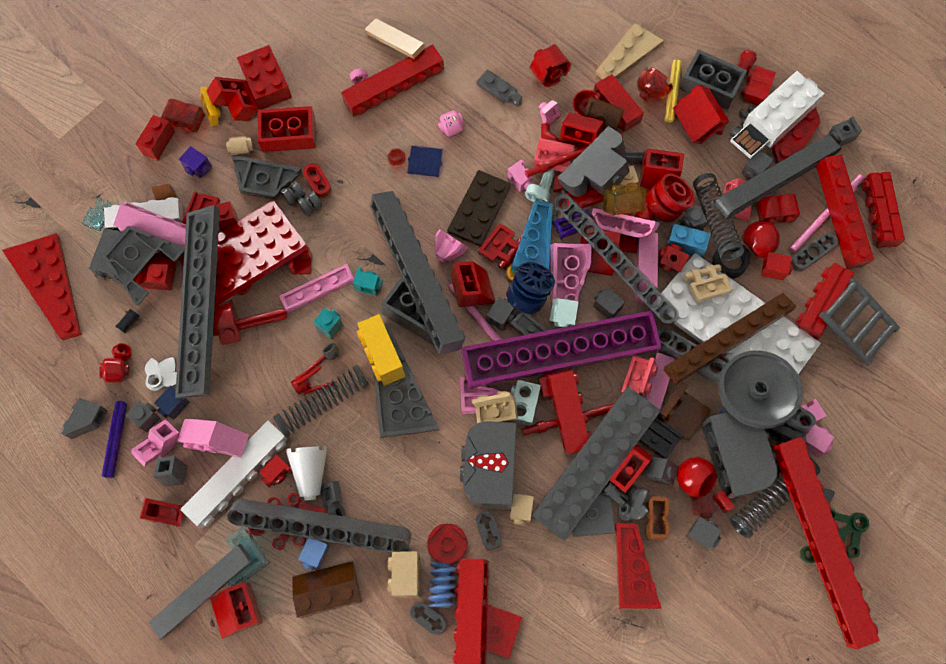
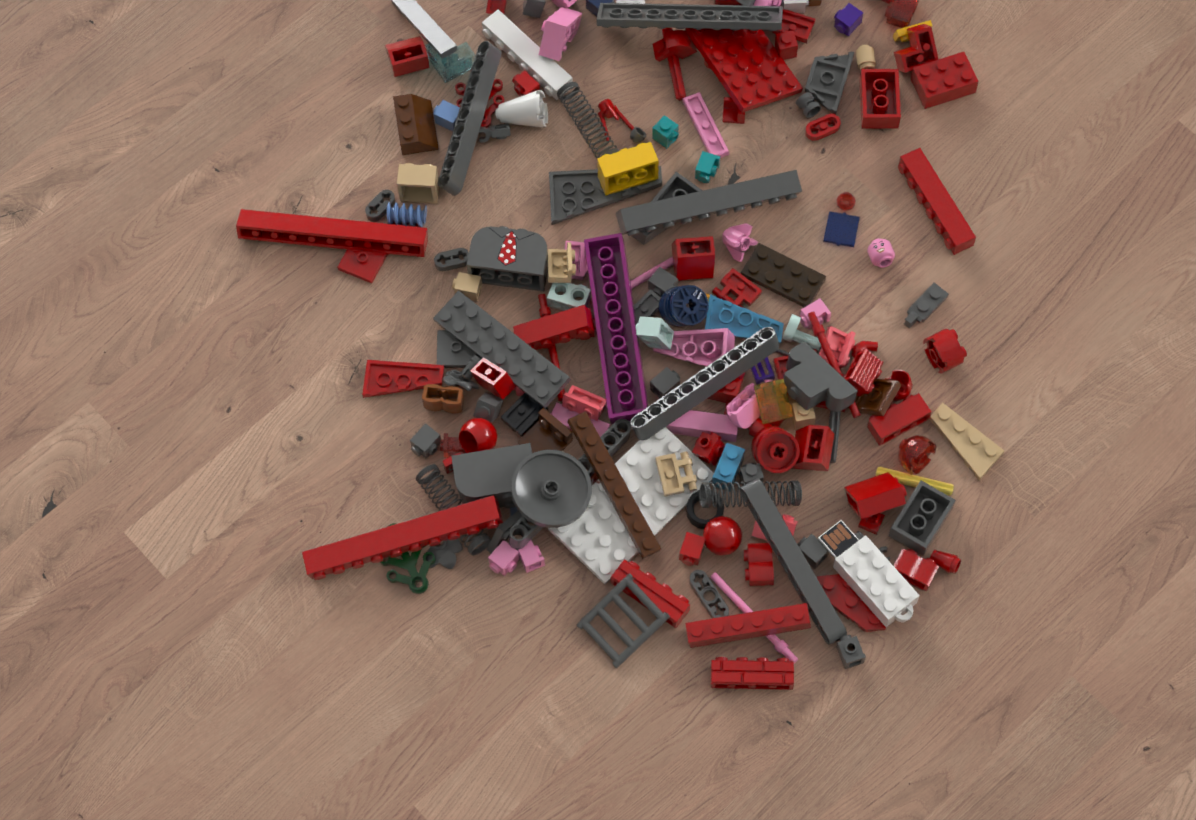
camera: 95 degrees right, 5 degrees down
(306, 206) = (796, 119): dark grey wheel -> none
(358, 75) = (944, 168): bright pink tile -> none
(394, 38) = (986, 202): tile -> none
(447, 543) = (444, 225): red tile -> none
(549, 112) = (890, 349): bright pink tile -> none

